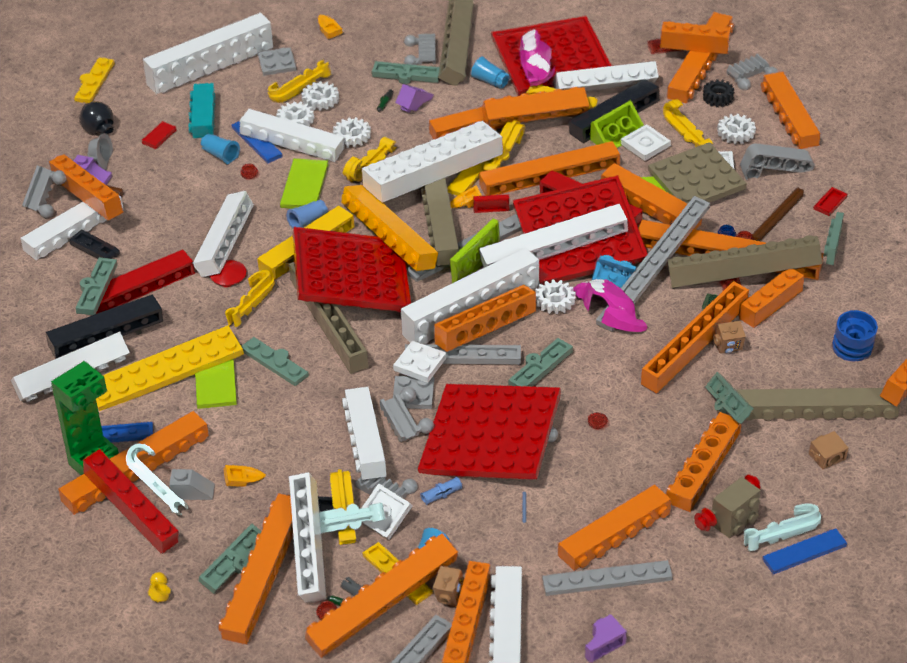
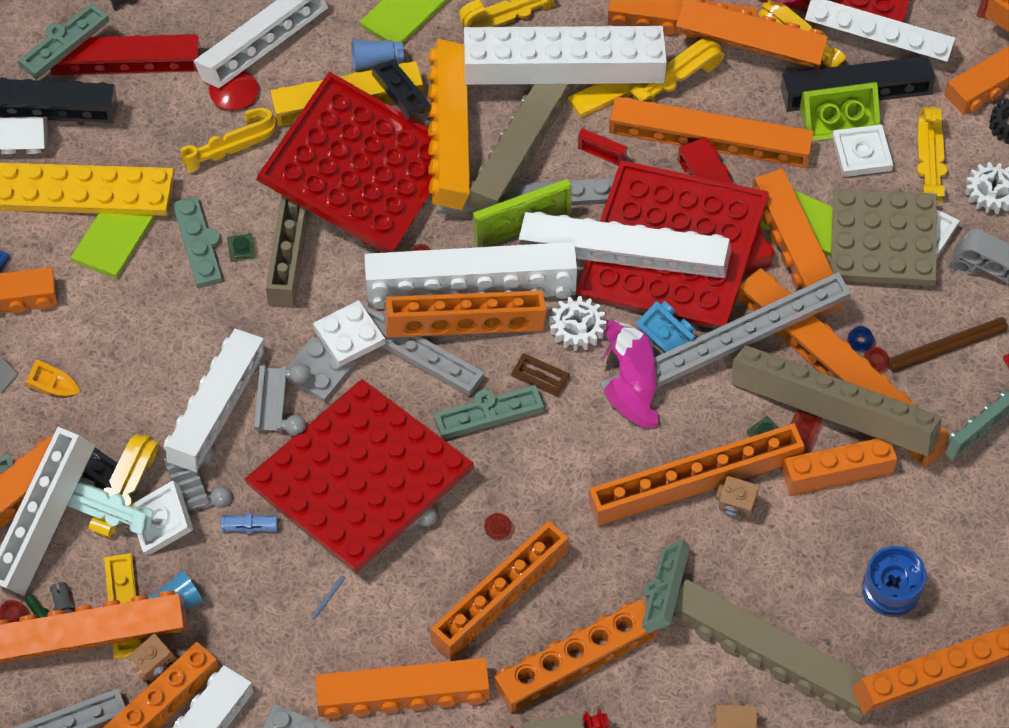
camera: 30 degrees right, 15 degrees up
(306, 351) = (241, 247): none -> clear green plate
(345, 220) = (400, 89): none -> black plate
(465, 198) = (575, 122): light orange plate -> none
(550, 337) = (556, 391): none -> reddish brown tile
(630, 449) = (499, 590): none -> orange brick

